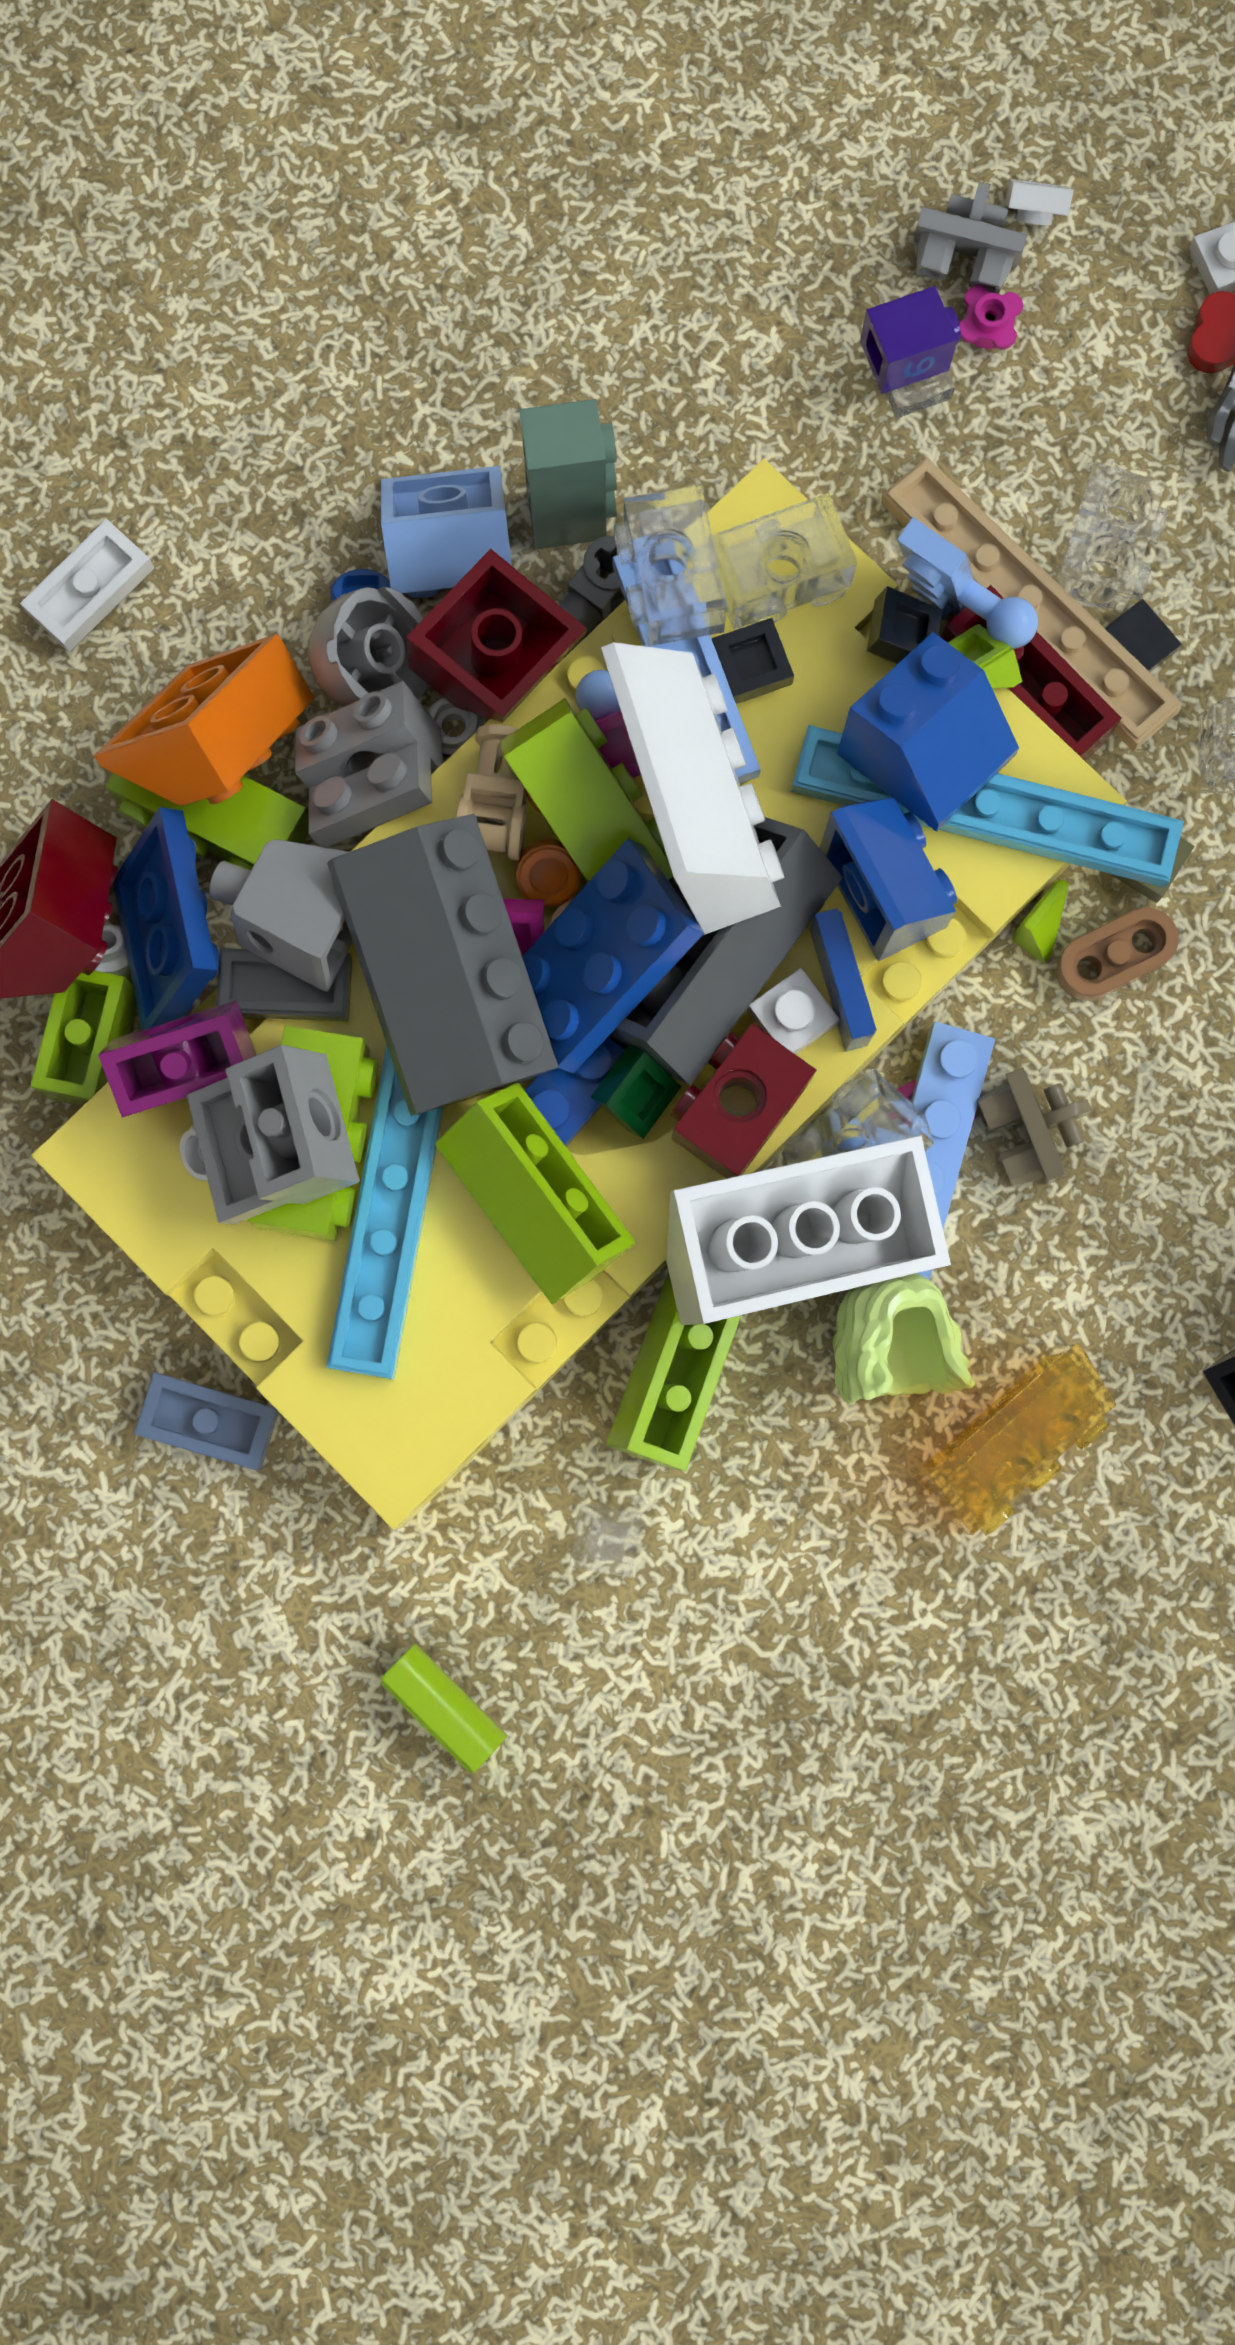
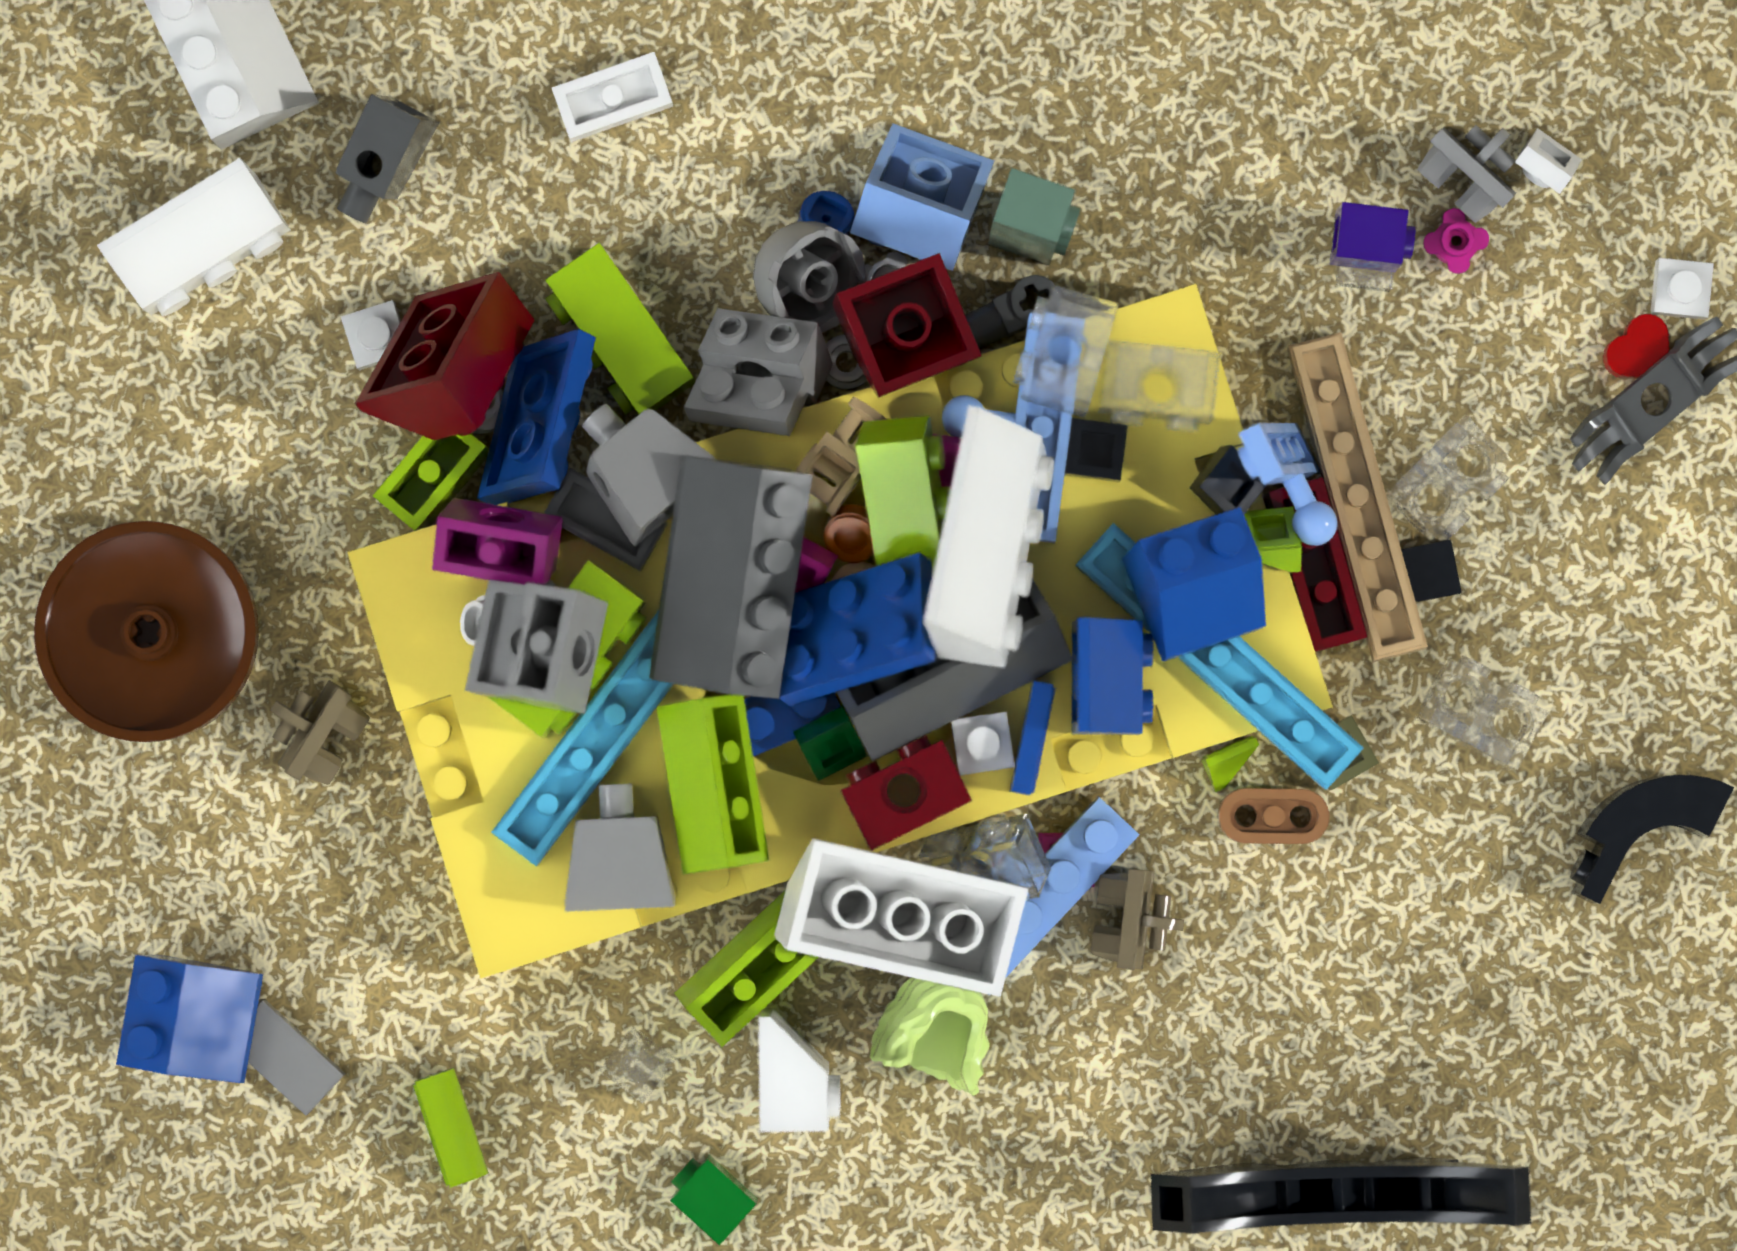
camera: 25 degrees right, 5 degrees up
(102, 1335) = (305, 752): none -> dark tan hips
(106, 1737) = (189, 1018): none -> slope
(207, 1421) = (379, 817): sand blue plate -> none
(211, 724) = (651, 274): orange slope -> none
(232, 1724) = (291, 1060): none -> light grey tile
(474, 1324) = (618, 858): none -> light grey torso
(755, 1639) = (712, 1197): none -> green brick
(780, 1466) = (793, 1080): none -> white slope
(1018, 1440) = (987, 1153): clear yellow slope -> none

